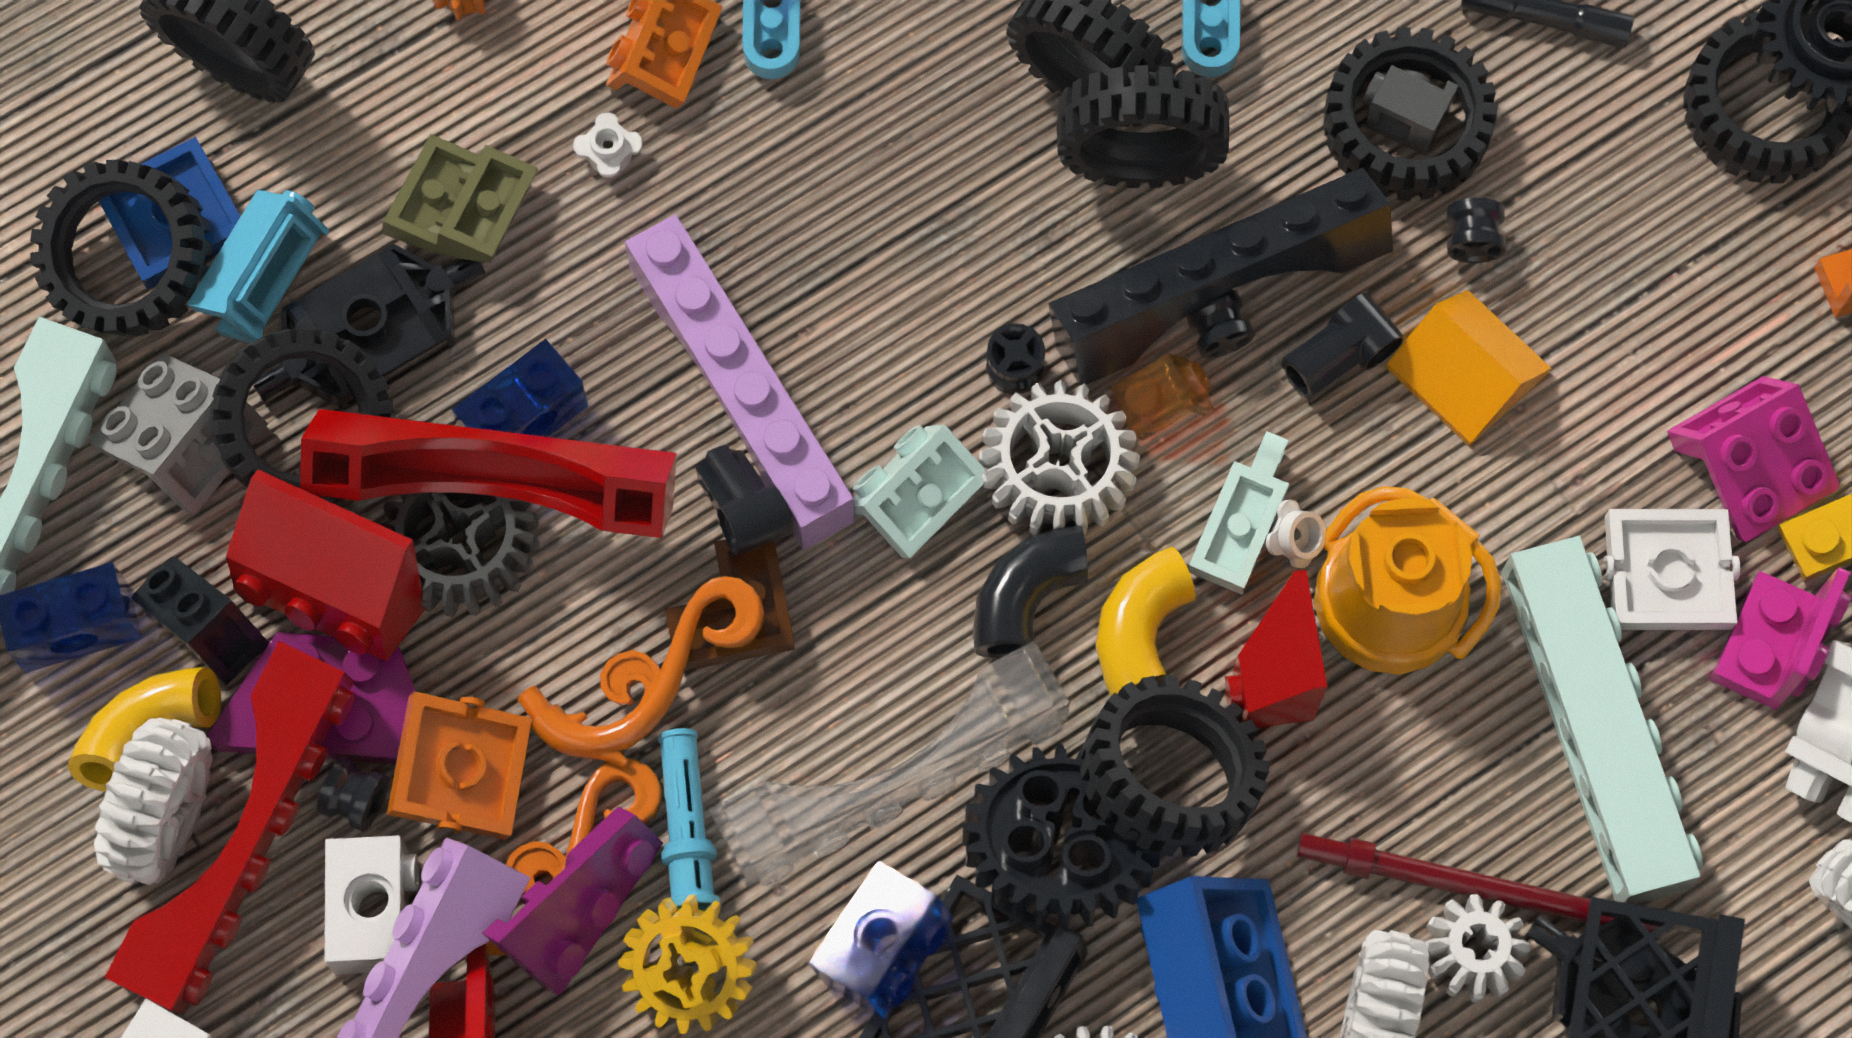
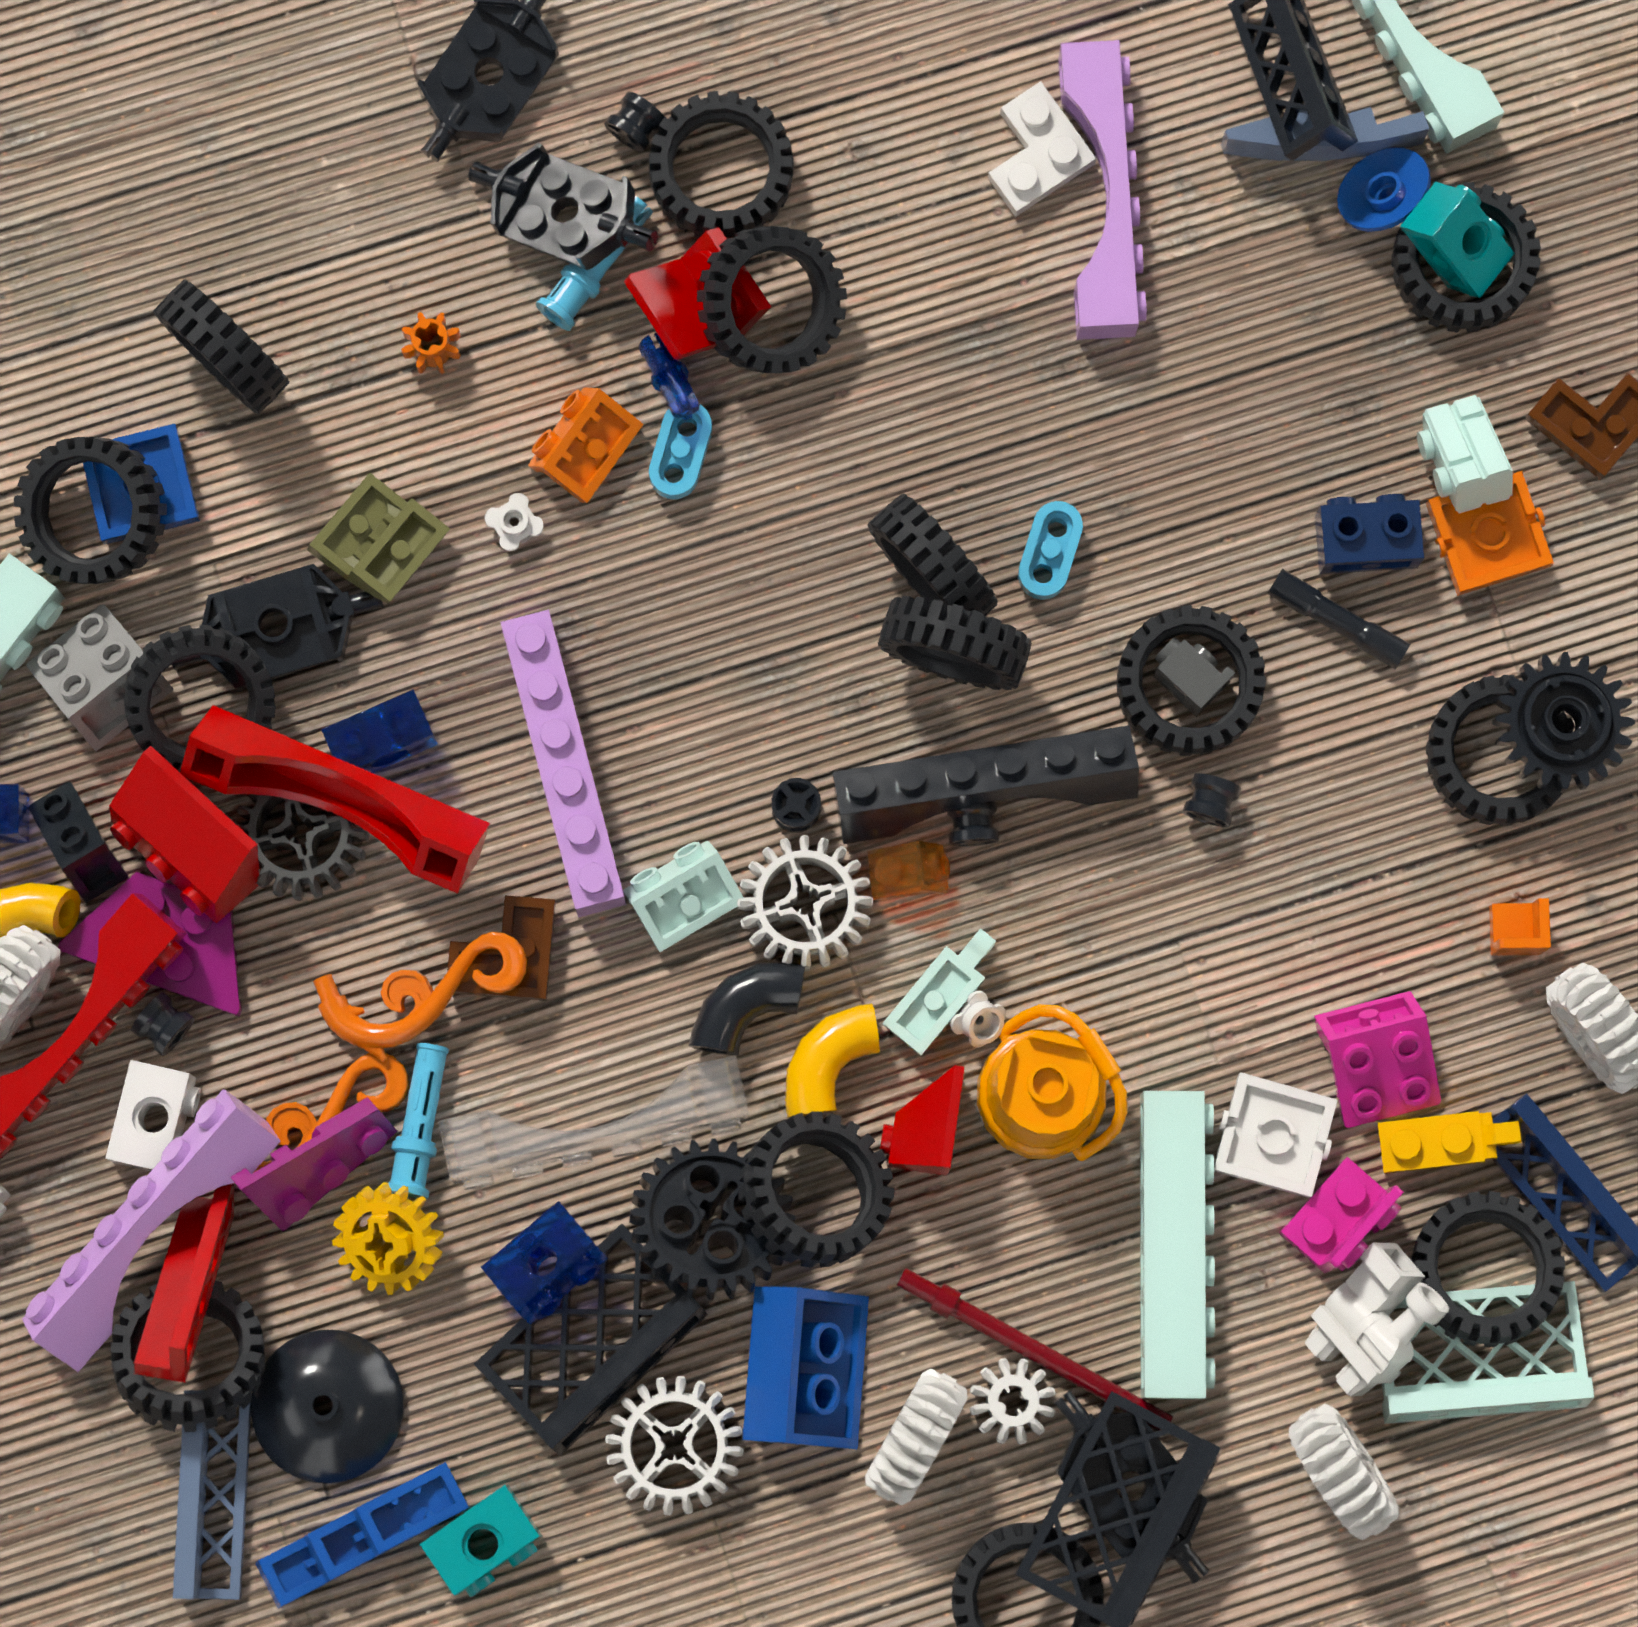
camera: 15 degrees right, 10 degrees up
(258, 263) = (198, 552): medium azure window -> none
(459, 765) = (252, 1026): orange plate -> none
(744, 506) = (536, 878): black piece -> none
(1354, 339) = (1080, 866): black piece -> none
(1466, 365) = (1169, 913): light orange slope -> none

